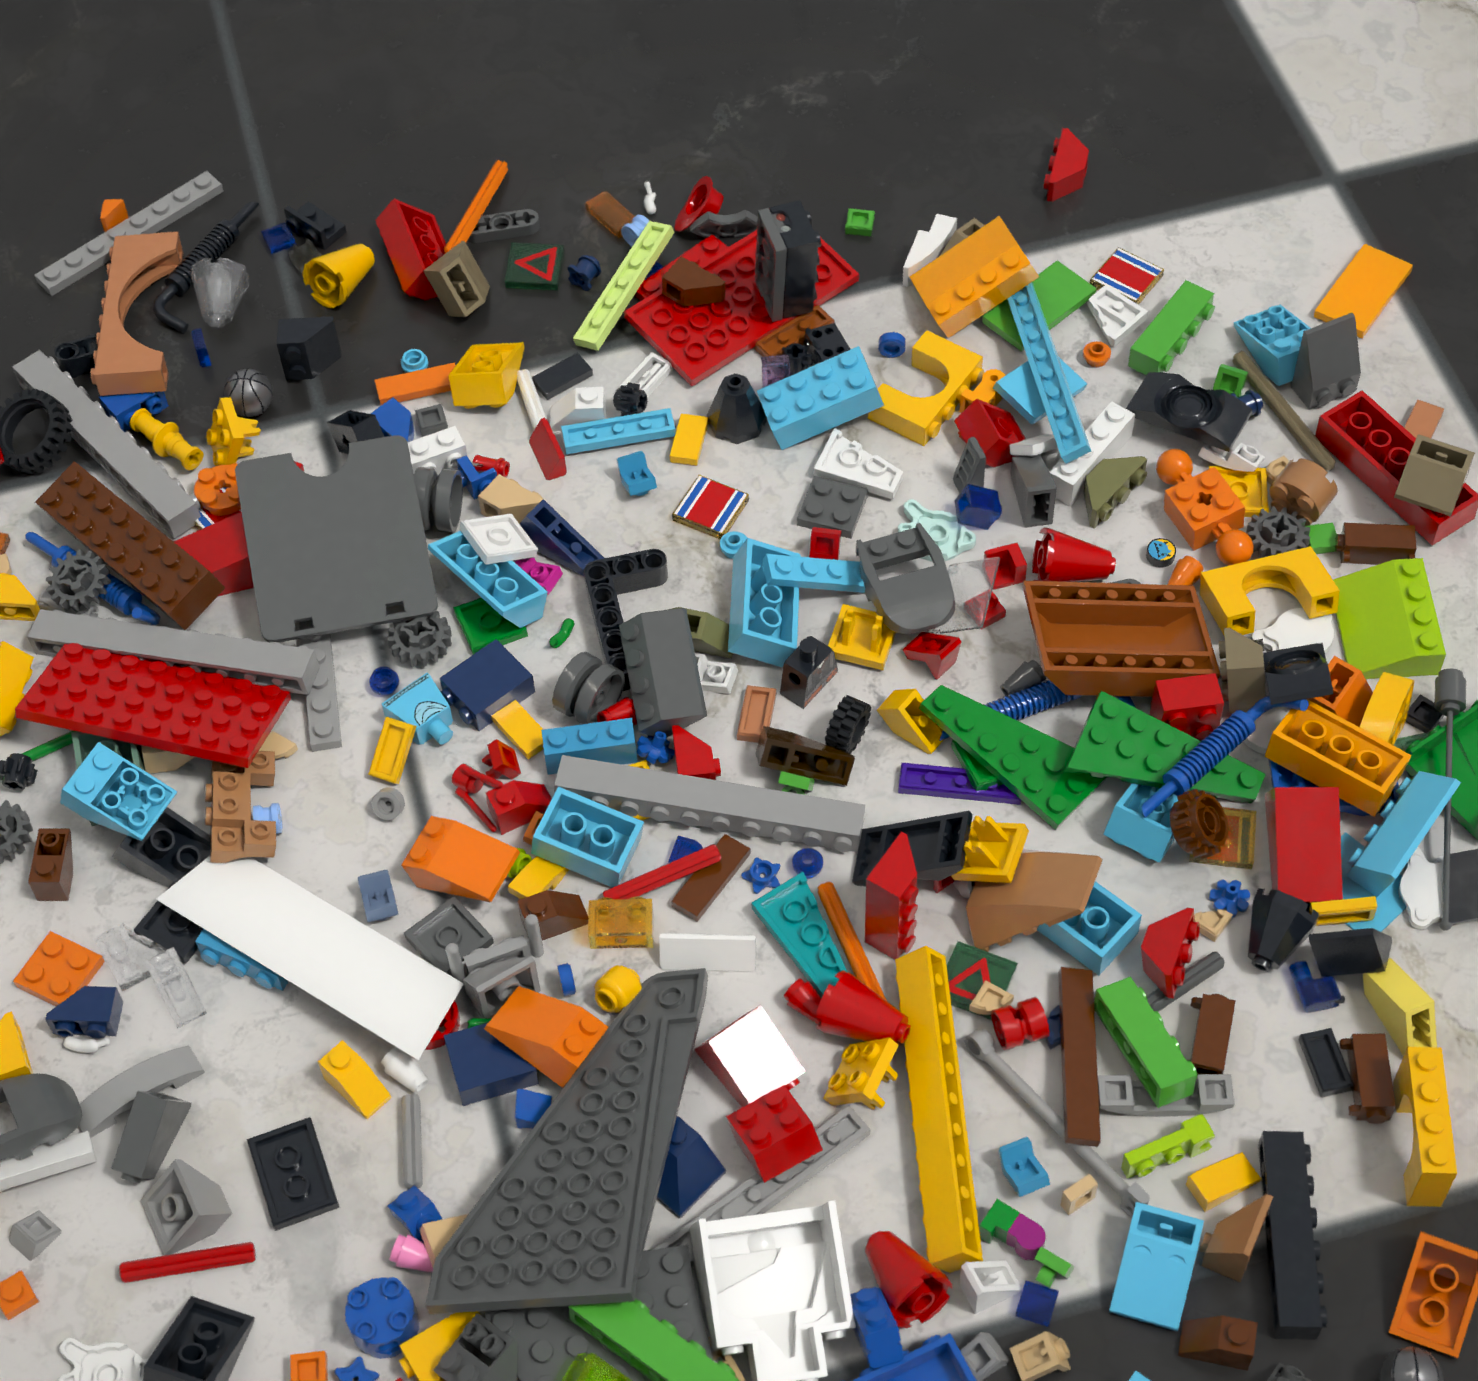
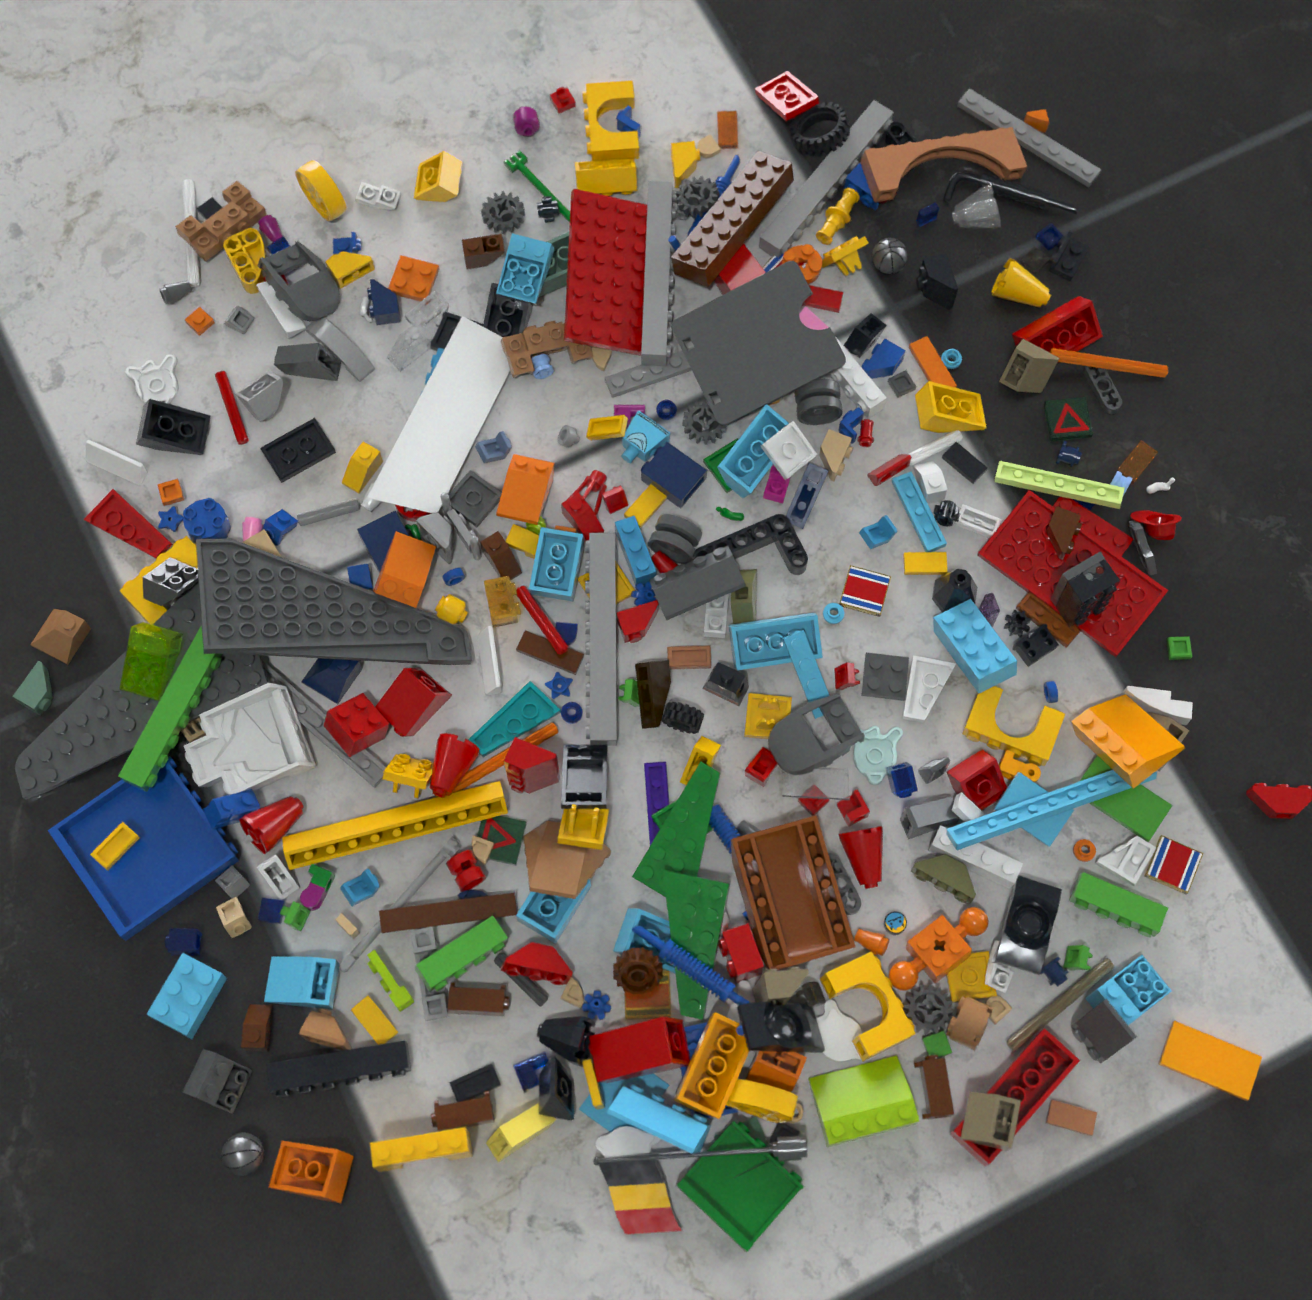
camera: 75 degrees right, 15 degrees up
(371, 726) = (629, 411): none -> magenta piece
(803, 999) = (464, 728): red cone -> none

